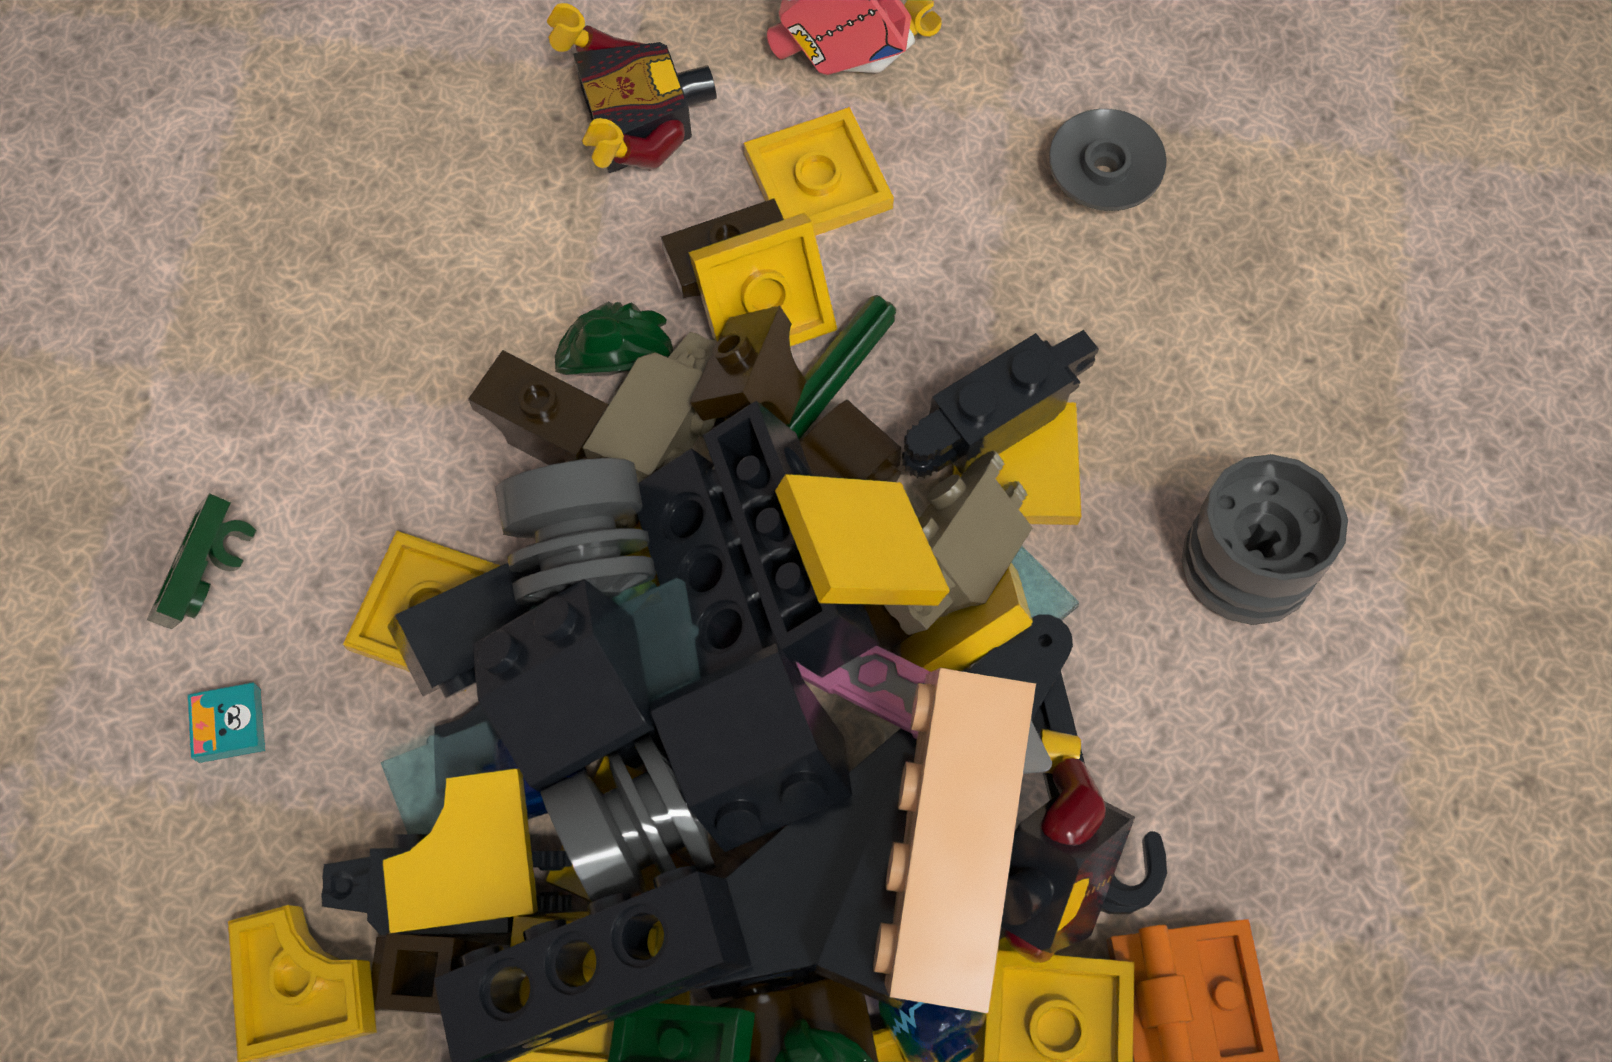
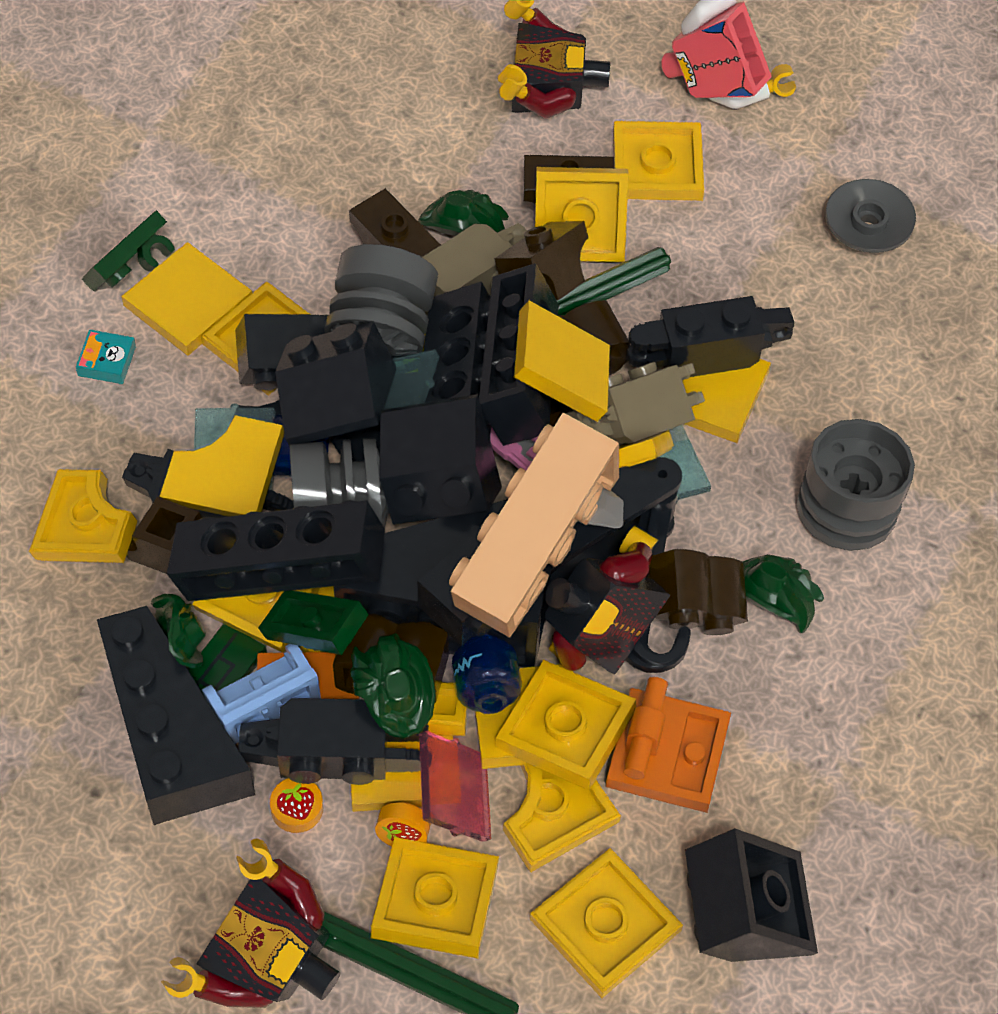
camera: 20 degrees right, 10 degrees down
(298, 594) = (185, 297): none -> yellow tile
(1148, 769) = (701, 589): none -> dark brown brick
(1215, 711) = (782, 589): none -> dark green hat

